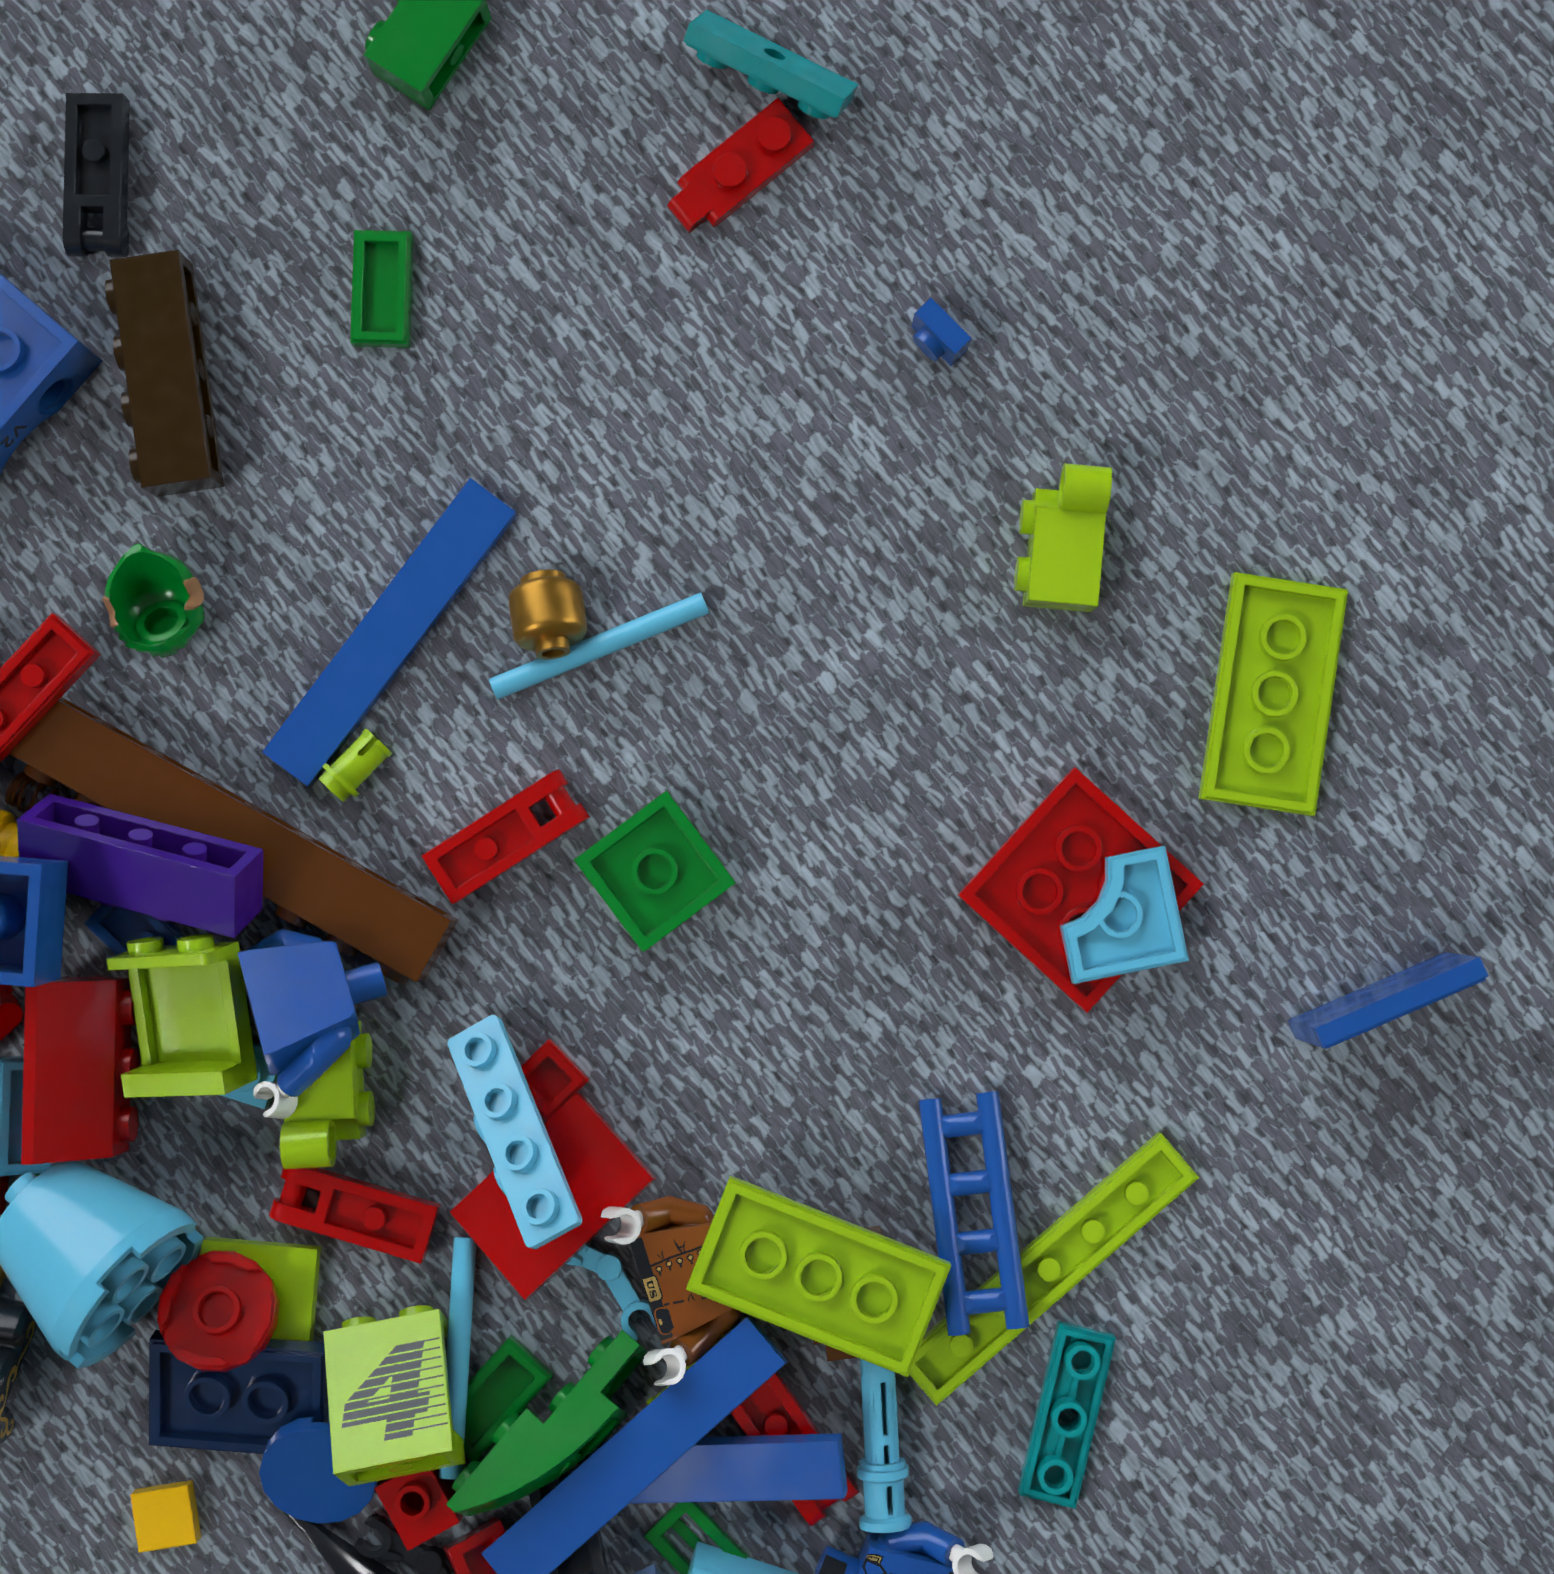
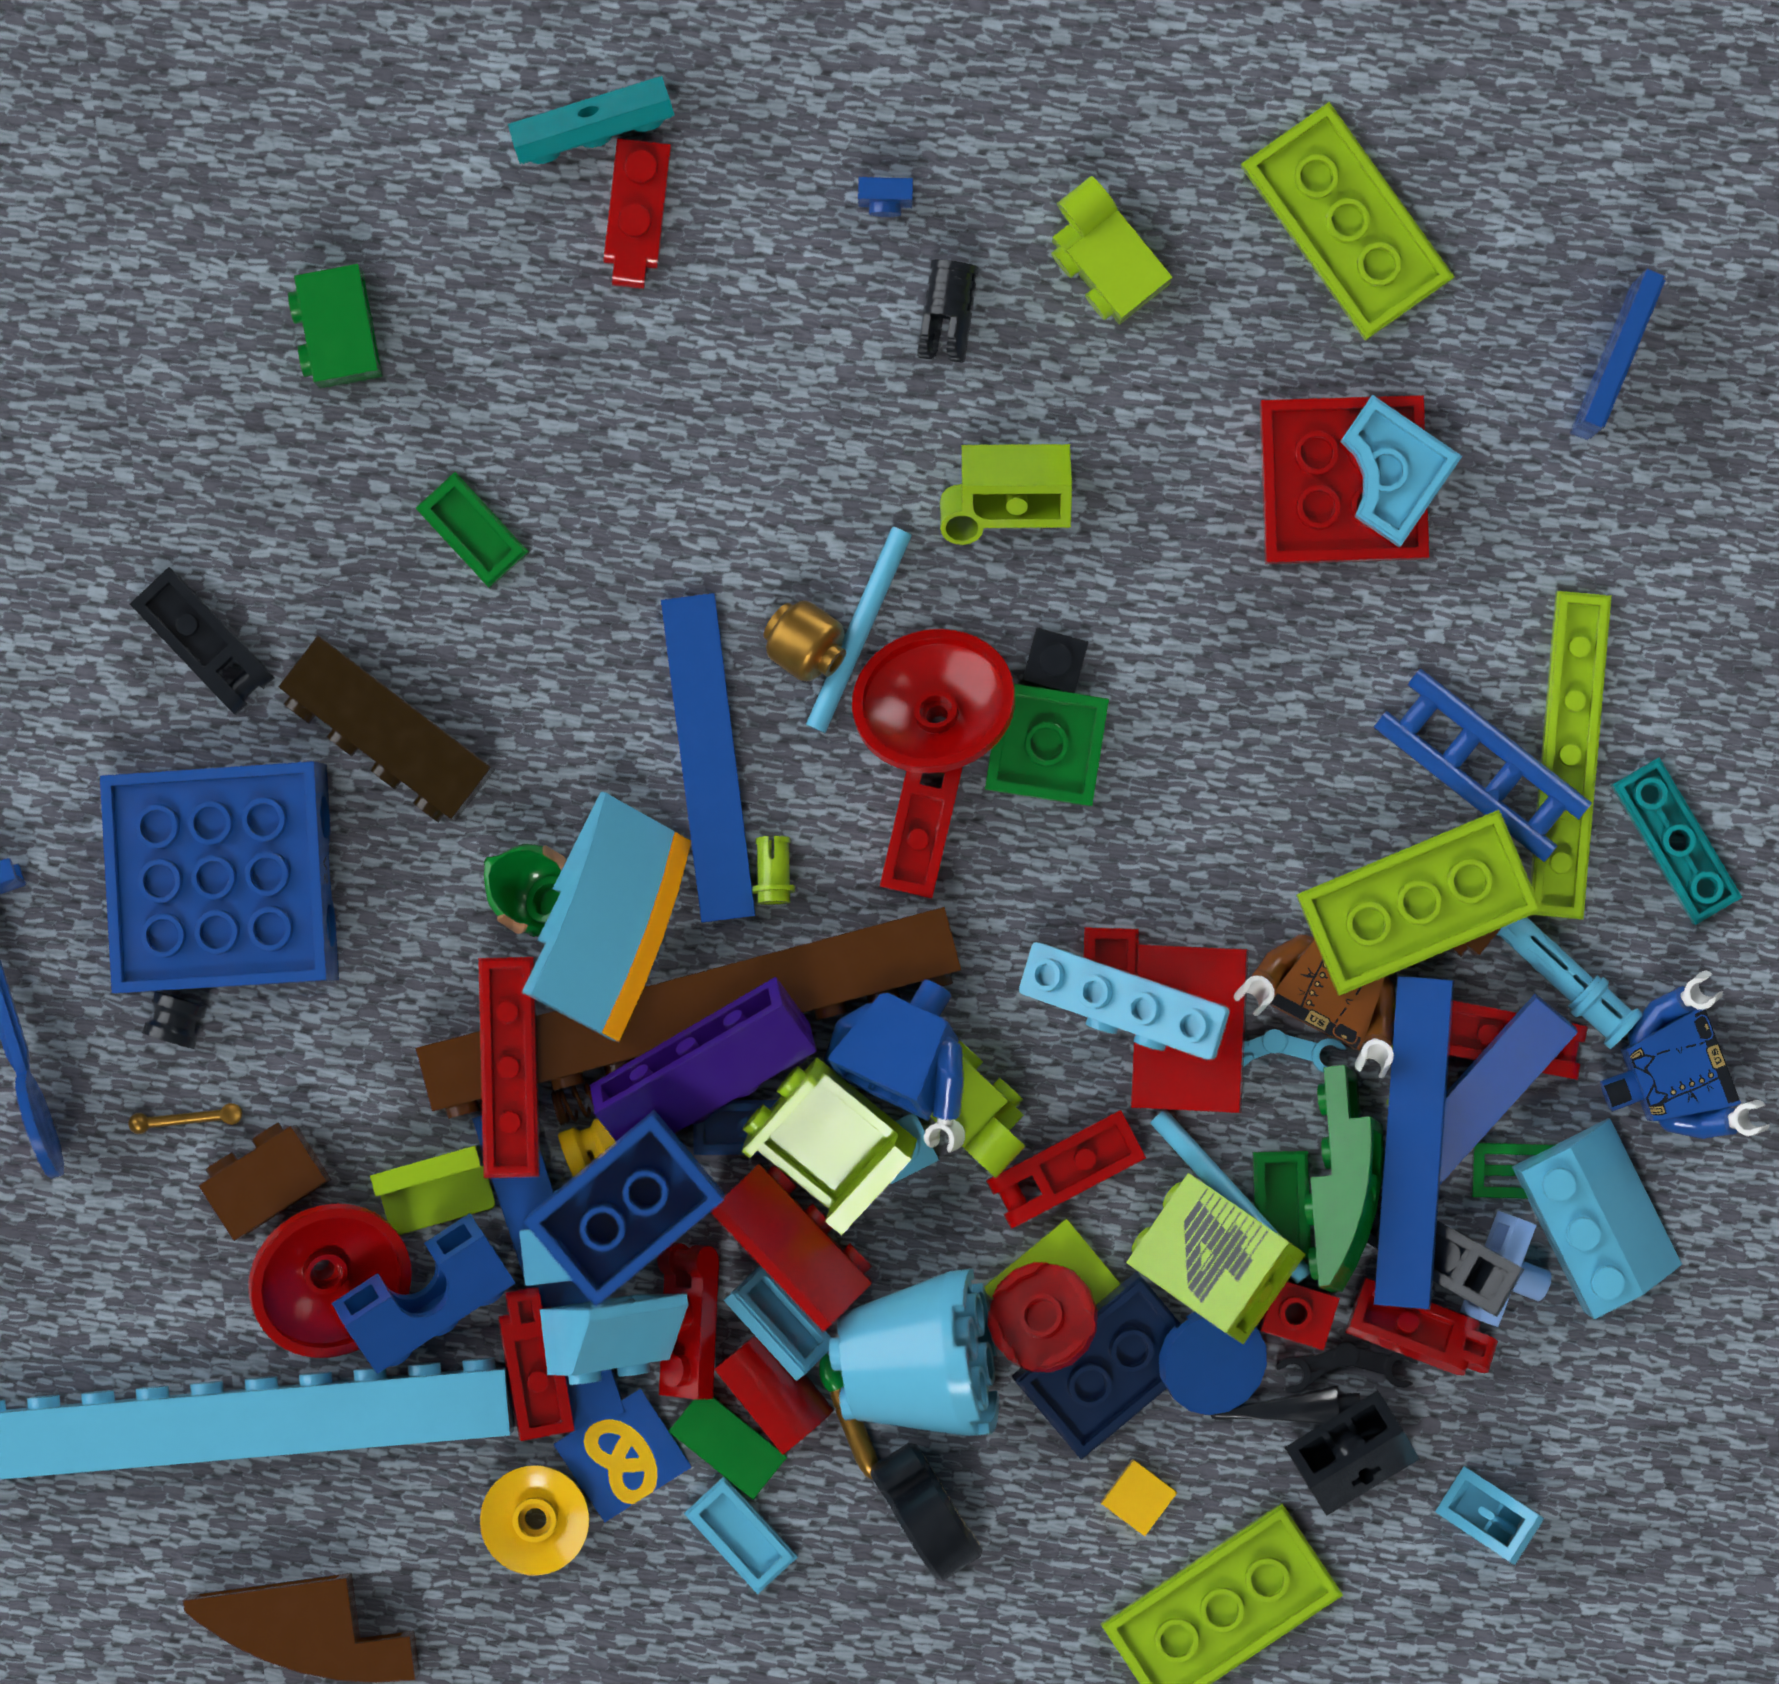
camera: 45 degrees left, 0 degrees up
(182, 679) = (608, 917): none -> medium azure slope
(604, 728) = (929, 678): none -> red dish
(724, 814) = (1055, 661): none -> black plate
(813, 648) = (1008, 490): none -> lime hinge
(912, 462) = (949, 299): none -> black hinge

